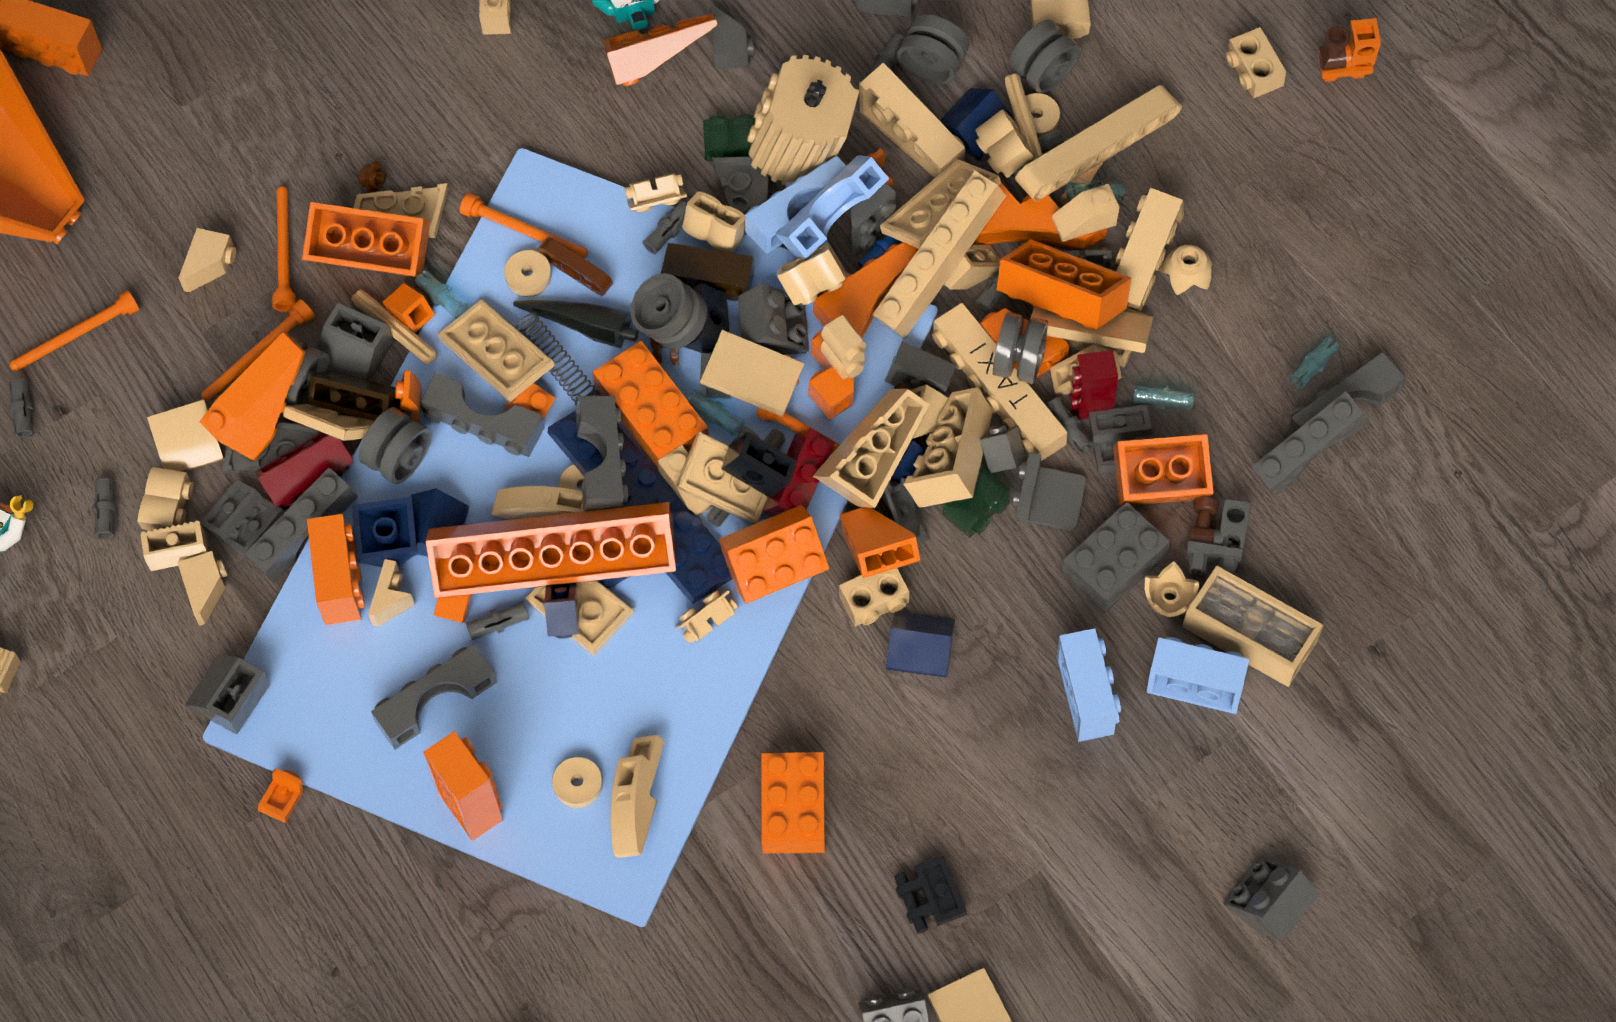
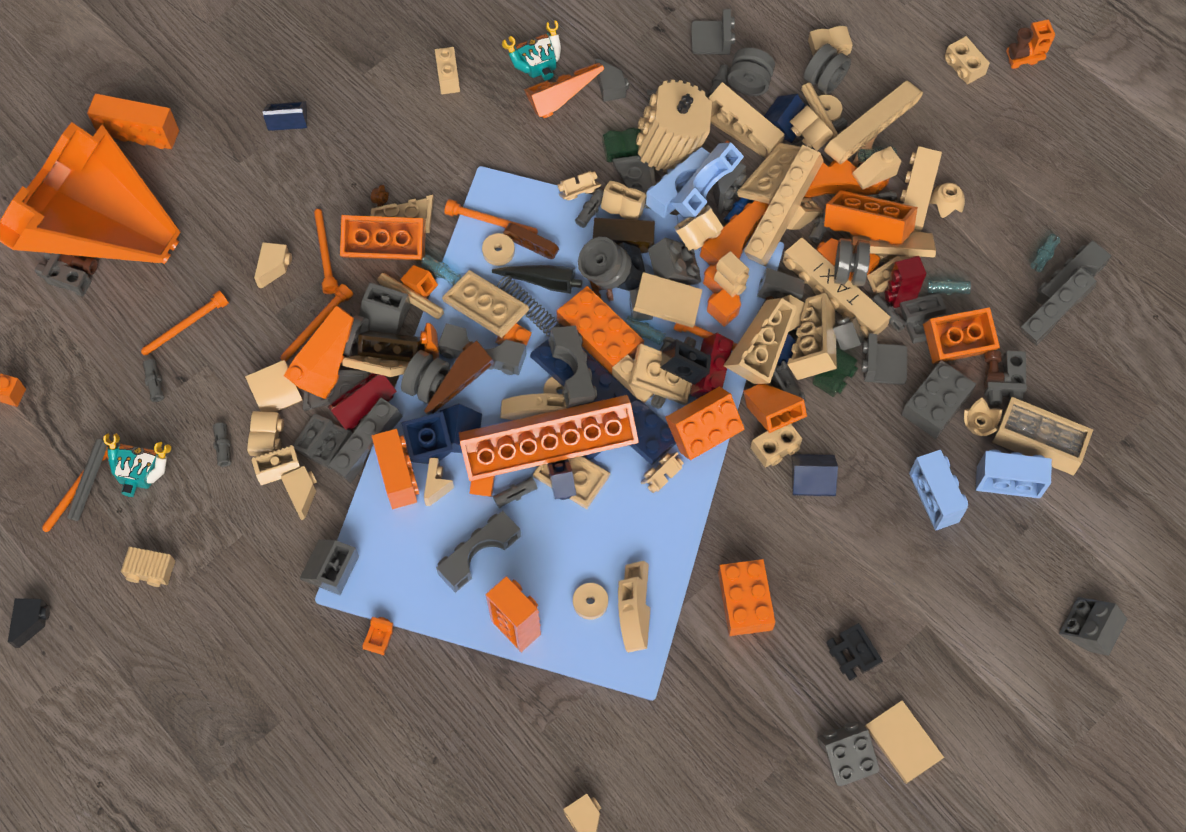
camera: 10 degrees left, 0 degrees up
(255, 43) = (285, 116): none -> dark blue slope
(451, 442) = (467, 368): none -> reddish brown slope

